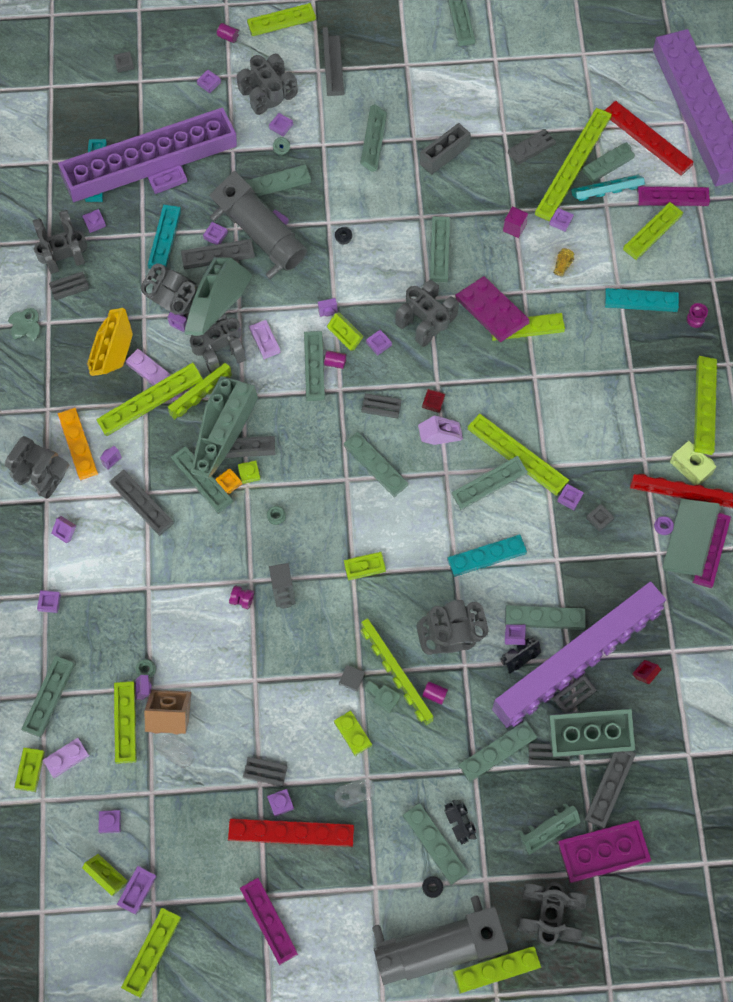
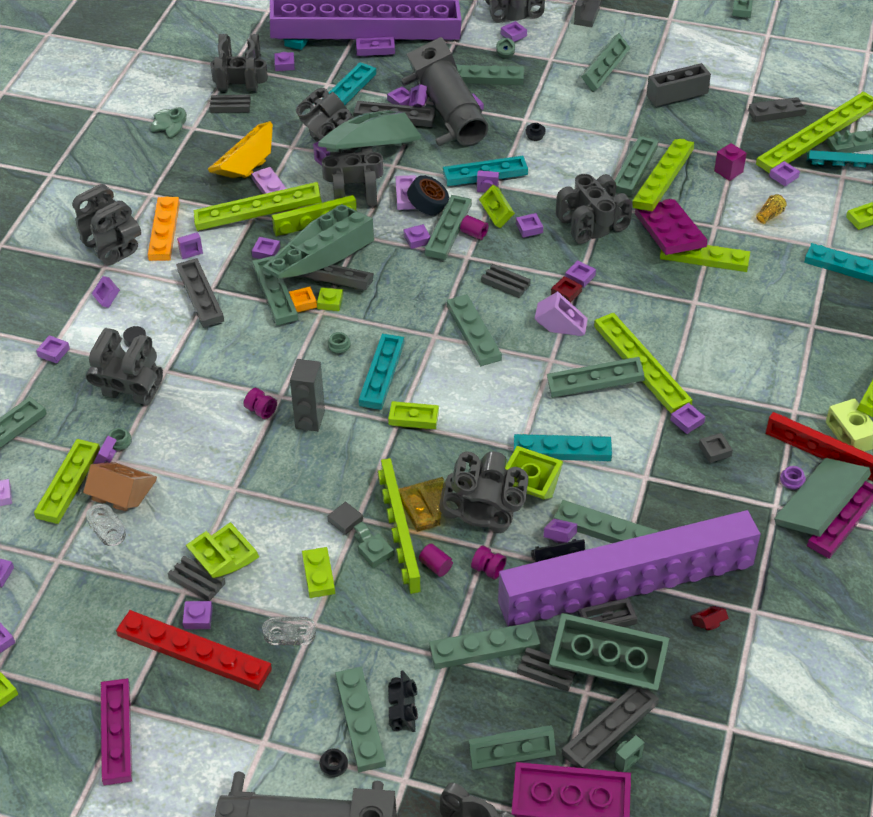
camera: 20 degrees right, 20 degrees down
(108, 564) = (132, 332): none -> black tile
(116, 616) = (123, 371): none -> dark grey piece
(174, 439) = (265, 248): none -> medium lavender plate
(232, 232) = (418, 96): none -> medium lavender plate
(274, 742) = (223, 551): none -> lime slope
(286, 340) = (428, 195): none -> black wheel
(291, 382) = (416, 236): none -> medium lavender plate
(322, 532) = (381, 371): none -> teal plate
(326, 290) = (467, 173): none -> teal plate
(405, 645) = (423, 502): none -> clear yellow wing
(438, 380) = (581, 273): none -> medium lavender plate
(467, 254) = (663, 175): none -> lime plate
(474, 681) = (488, 562): none -> magenta wheel
(480, 590) = (541, 471): none -> lime slope
(629, 804) = (628, 753): none -> sand green plate

